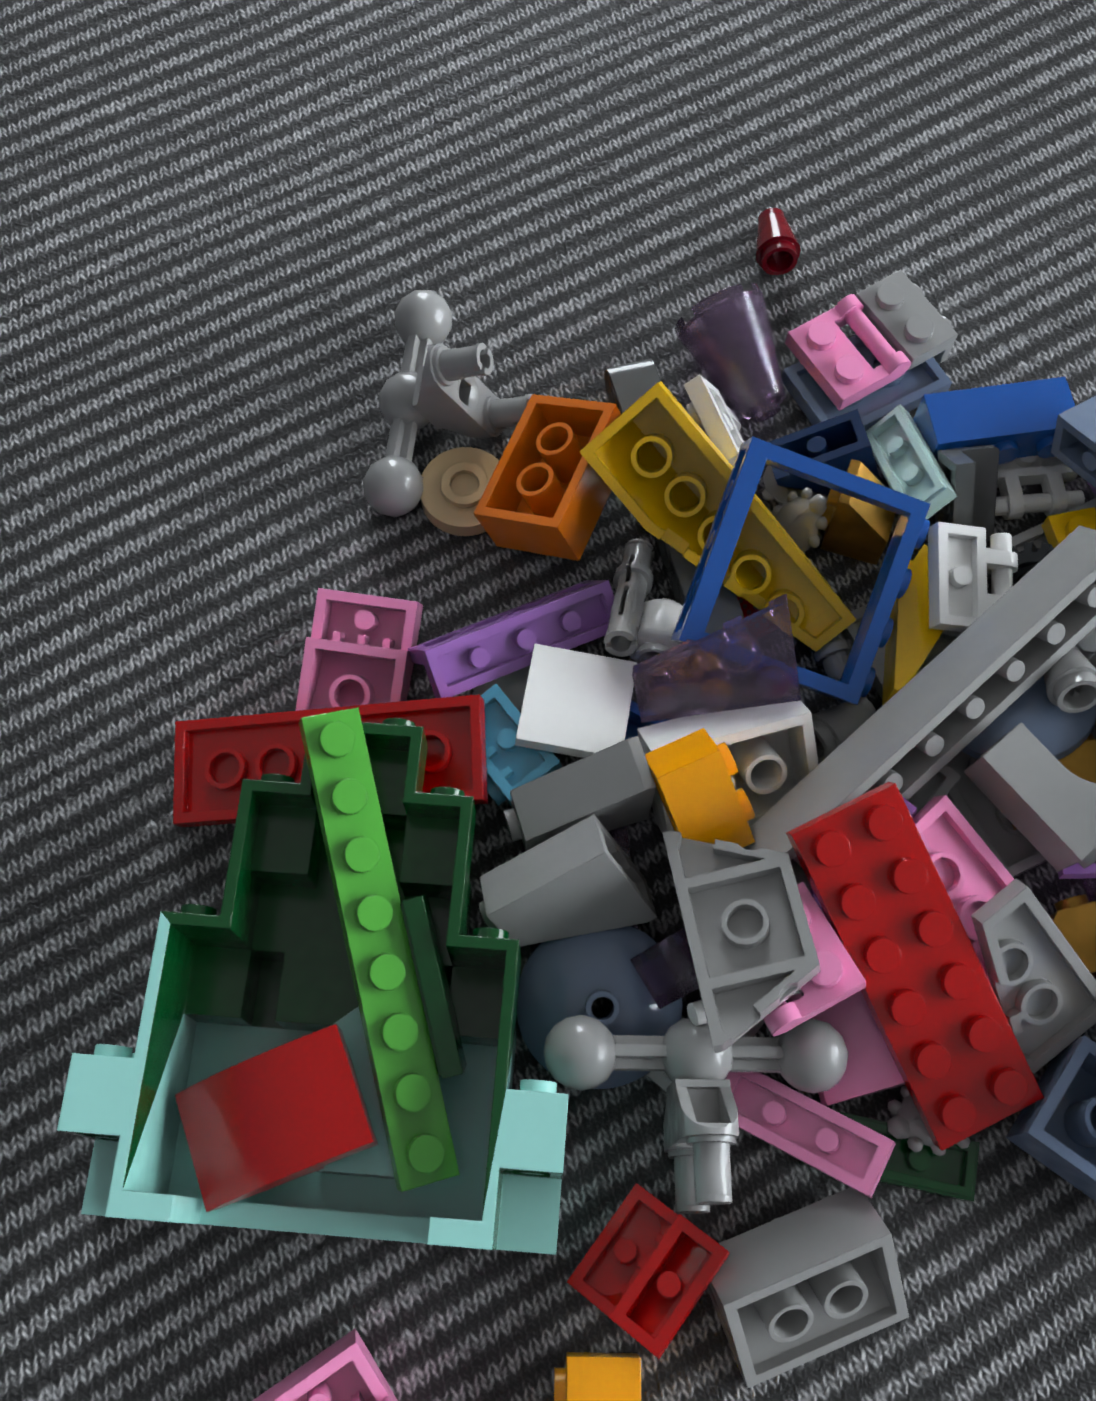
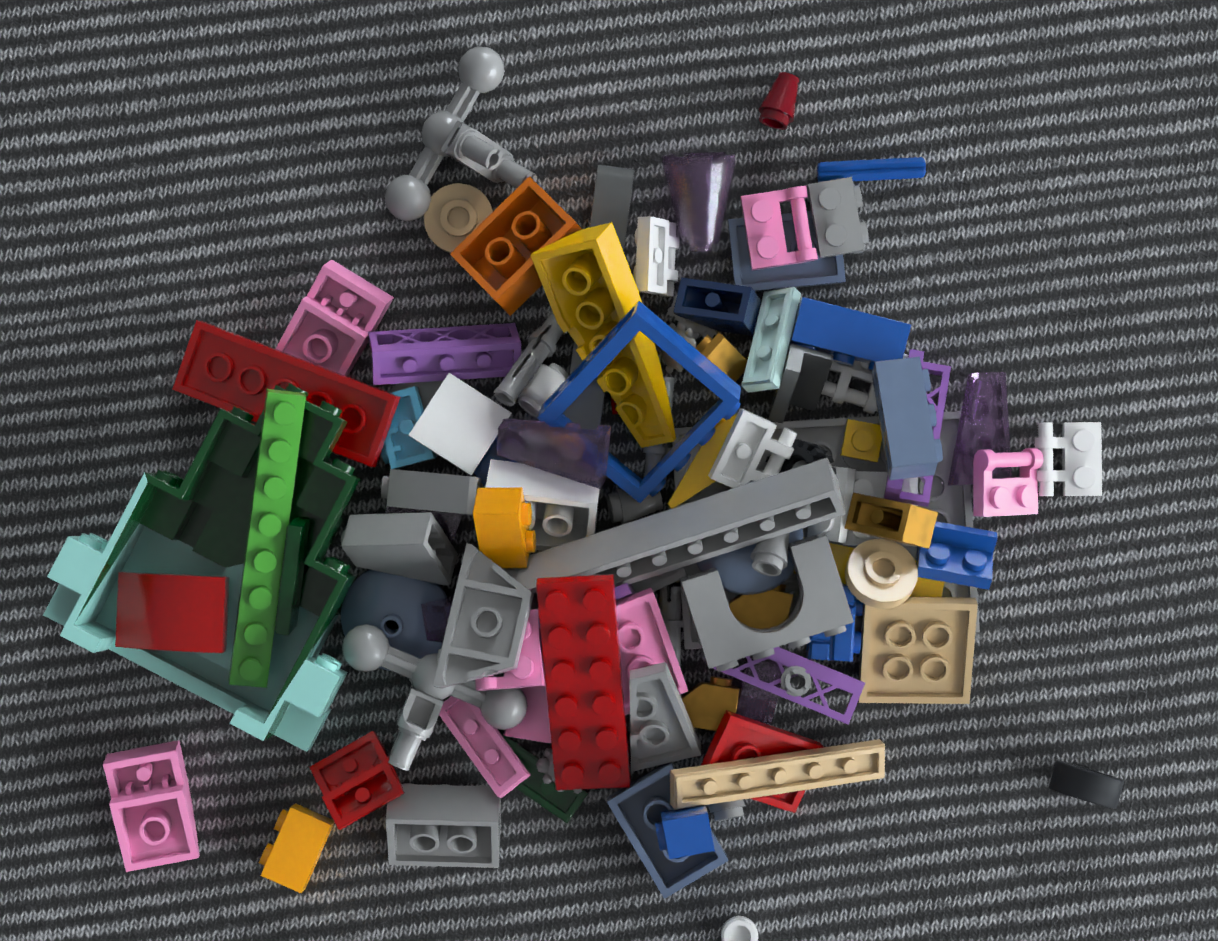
camera: 25 degrees right, 20 degrees up
(923, 266) = (872, 169): none -> blue axle

